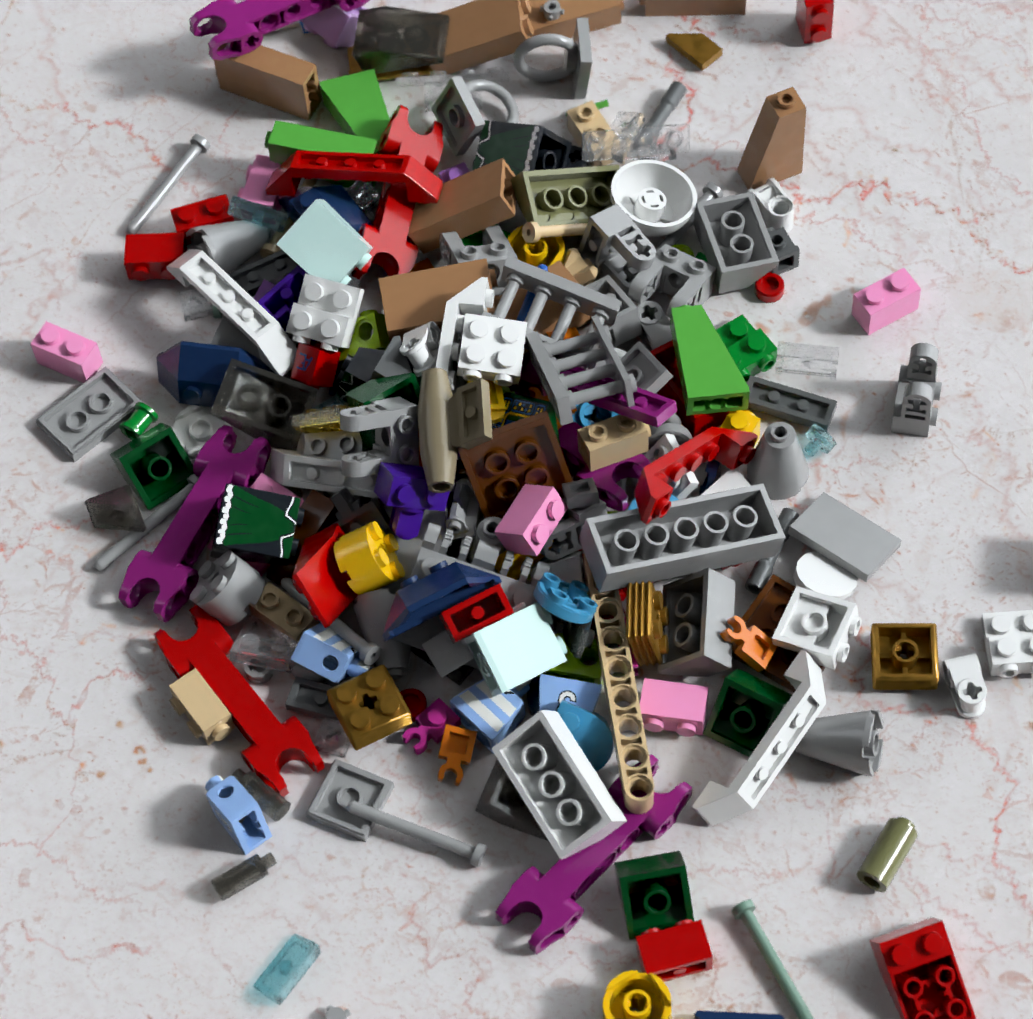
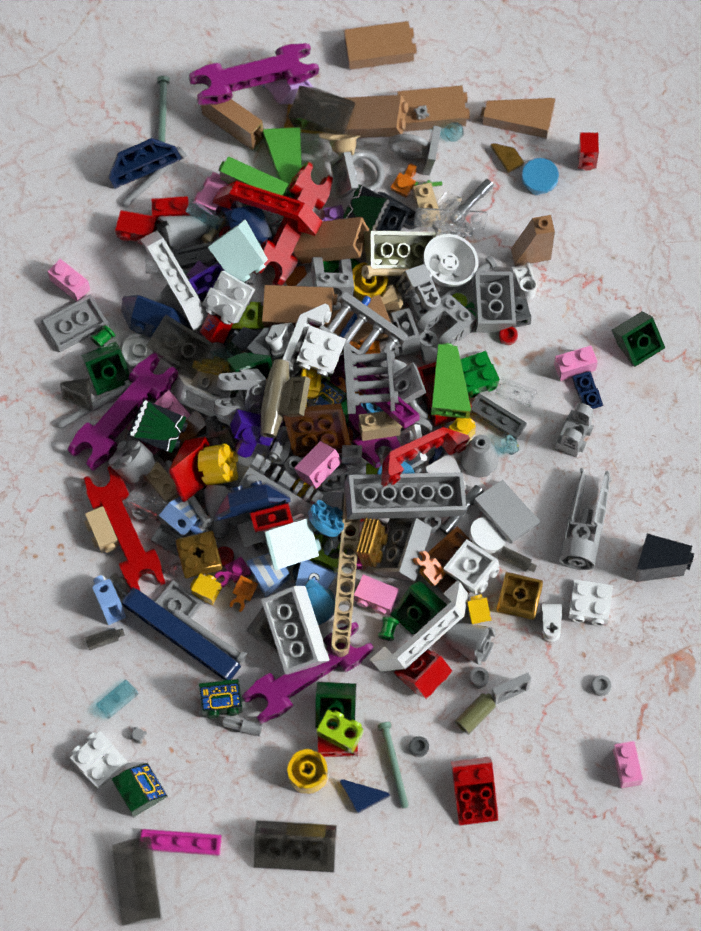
camera: 10 degrees right, 10 degrees up
(143, 161) = (141, 161): none -> dark blue wedge
(151, 55) = (163, 81): none -> sand green bar
(370, 839) = (180, 634): none -> dark blue beam
(393, 759) = (206, 588): none -> yellow brick
(441, 73) = (341, 143): none -> tan piece
(461, 923) = (221, 698): none -> slope
(508, 962) = (243, 725): none -> light grey axle
(552, 113) = (404, 183): none -> orange plate
(606, 30) = (454, 131): none -> clear light blue tile
(672, 937) = (337, 735): none -> lime brick
(707, 755) = (388, 628): none -> green bush
(738, 576) = (437, 520): none -> light grey bush
(752, 62) = (540, 176): none -> dark azure tile
(787, 810) = (425, 673): none -> red slope
(809, 929) = (419, 746): none -> dark grey tile
(846, 690) = (478, 609): none -> yellow brick
(875, 798) = (479, 677): none -> light grey tile
(883, 605) = (516, 560): none -> clear smoke cylinder
(909, 330) = (587, 390): none -> dark blue slope
(936, 798) = (511, 688): none -> light grey tile
(971, 246) = (638, 338): none -> dark green slope
(978, 565) = (577, 551): none -> light grey piece

